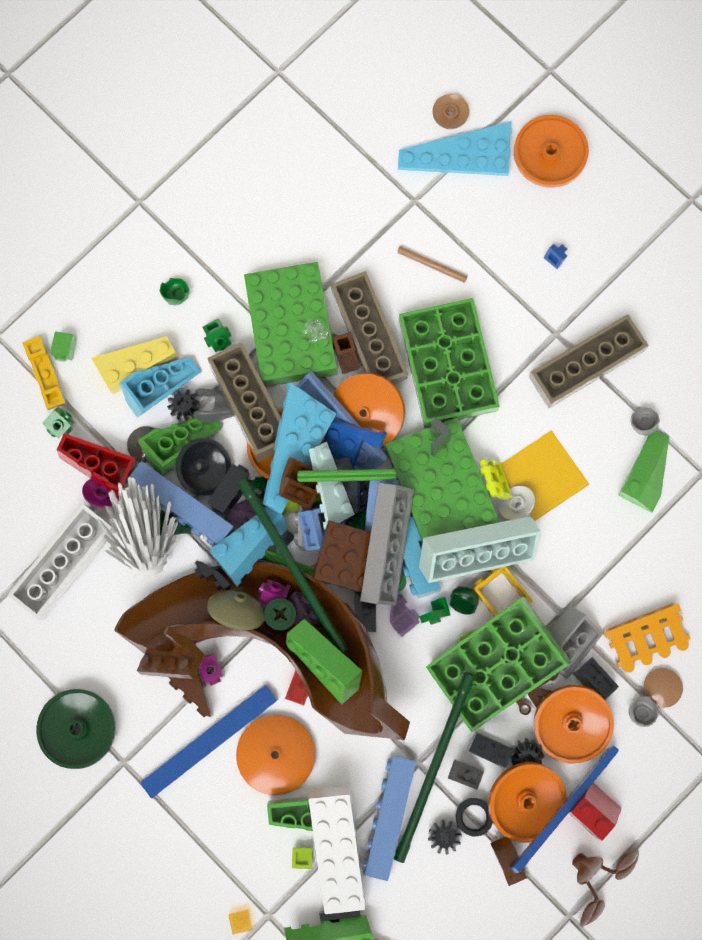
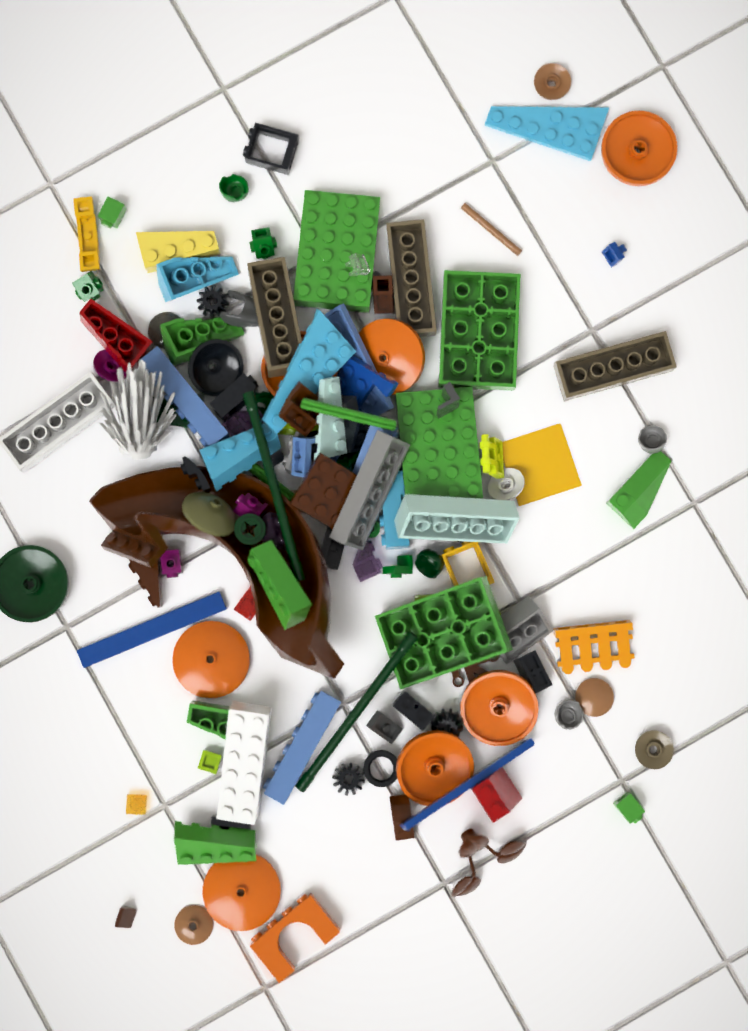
camera: 10 degrees right, 5 degrees up
(200, 229) = (291, 138): none -> black window

